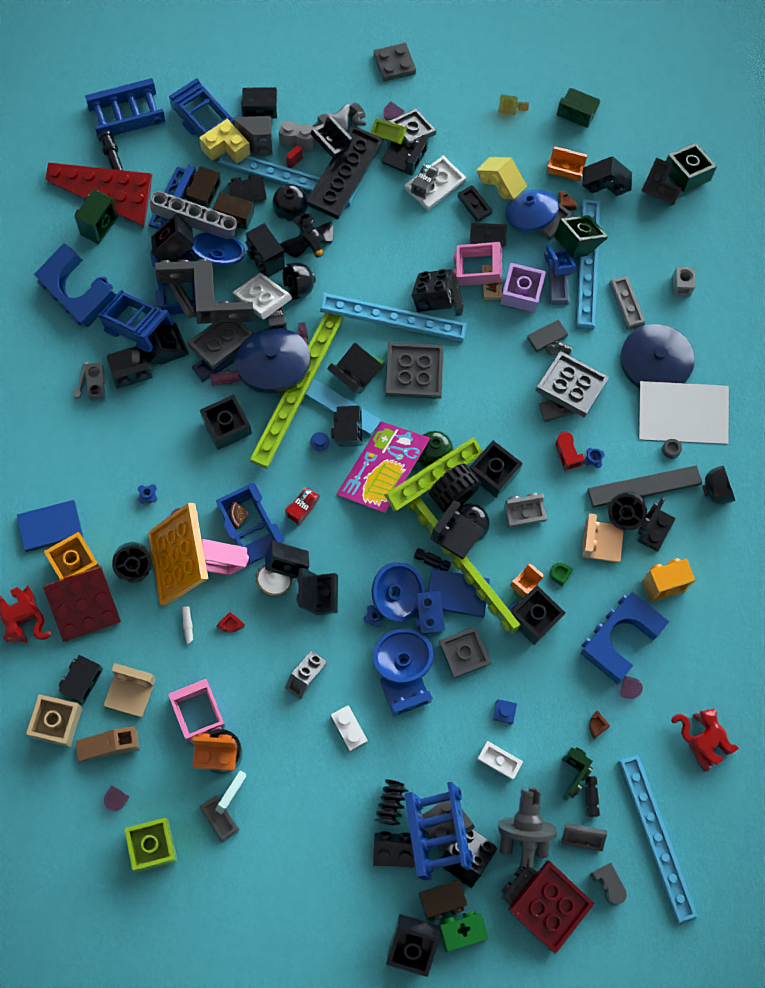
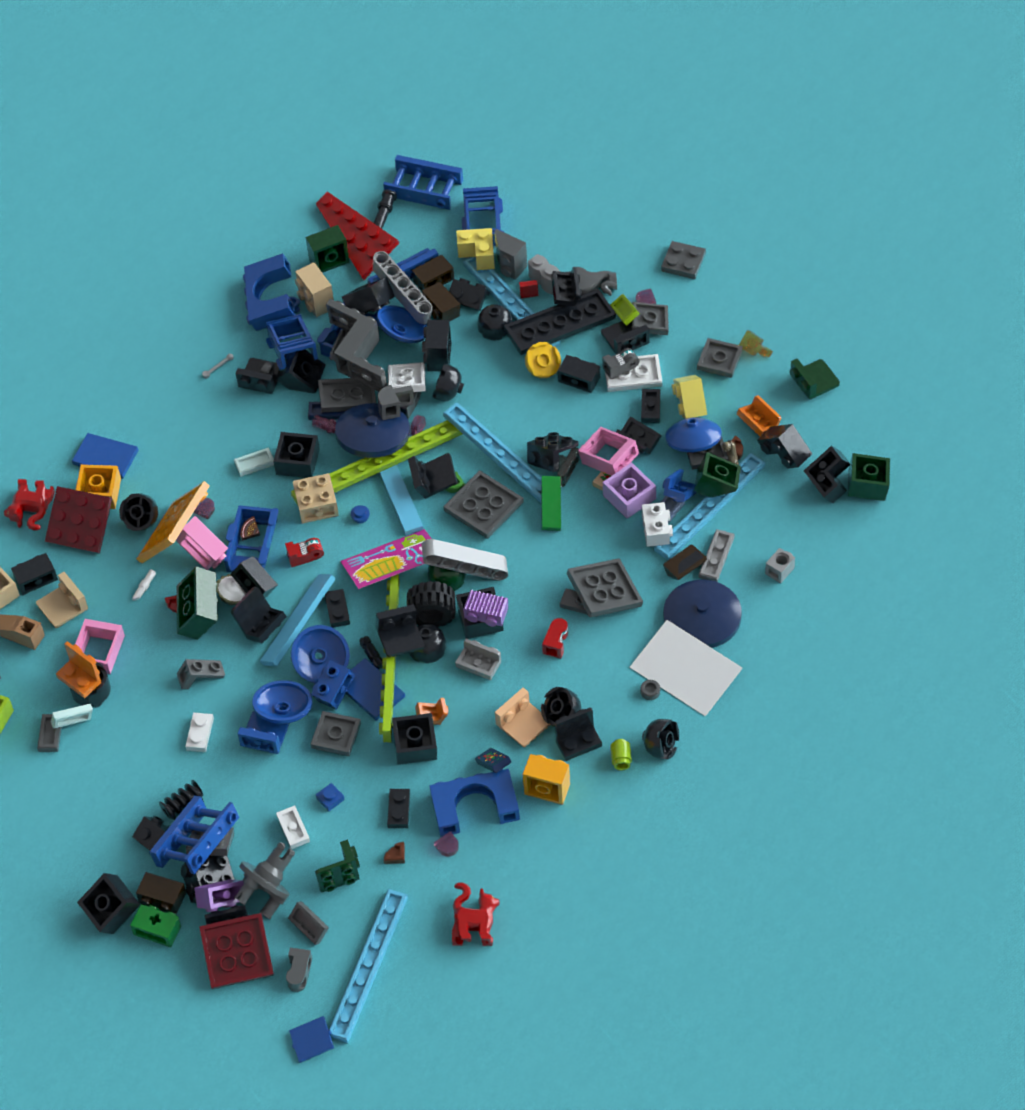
camera: 45 degrees right, 15 degrees down
(95, 380) = (225, 370): dark grey leg -> none
(116, 260) = (313, 289): none -> tan brick
(151, 498) = (198, 477): blue plate -> none
(189, 449) = (254, 462): none -> light aqua tile
(256, 614) = (196, 603): none -> dark green brick
(259, 102) = (536, 233): black bracket -> none
(274, 325) = (392, 399): none -> dark grey brick
(274, 450) = (315, 498): none -> tan bracket
(308, 237) = (486, 355): black animal -> none
(347, 426) = (388, 513): black brick -> none
(348, 571) = (297, 620): none -> medium azure tile
(359, 213) = (542, 360): none -> yellow tile
(370, 538) = (337, 608): none -> black plate
(377, 622) = (287, 669): blue plate -> none
(396, 208) = (579, 373): none -> black brick
(428, 476) = (401, 582): lime plate -> none
(450, 431) = (464, 559): none -> beam
(468, 336) = (551, 503): none -> green tile
(493, 131) = (719, 357): none -> dark grey plate
(501, 868) = (218, 894): none -> medium lavender brick
(508, 464) = (485, 608): none -> medium lavender brick
(547, 335) = (621, 542): dark grey tile -> none
(556, 347) = (615, 553): clear smoke arm -> none
(560, 572) = (467, 725): green tile -> none
(567, 683) = (398, 808): none -> black plate
(568, 304) = (655, 524): none -> white brick
(570, 205) = (729, 447): none -> dark tan arm
(592, 796) = (342, 900): black axle -> none
(594, 453) = (575, 652): blue plate -> none
(611, 591) = (493, 760): none -> dark blue tile
(612, 323) = (684, 562): none -> dark brown slope
(646, 485) = (605, 705): dark grey tile -> none
(669, 937) = (311, 1039): none -> blue piece
(699, 519) = (621, 754): none -> lime brick

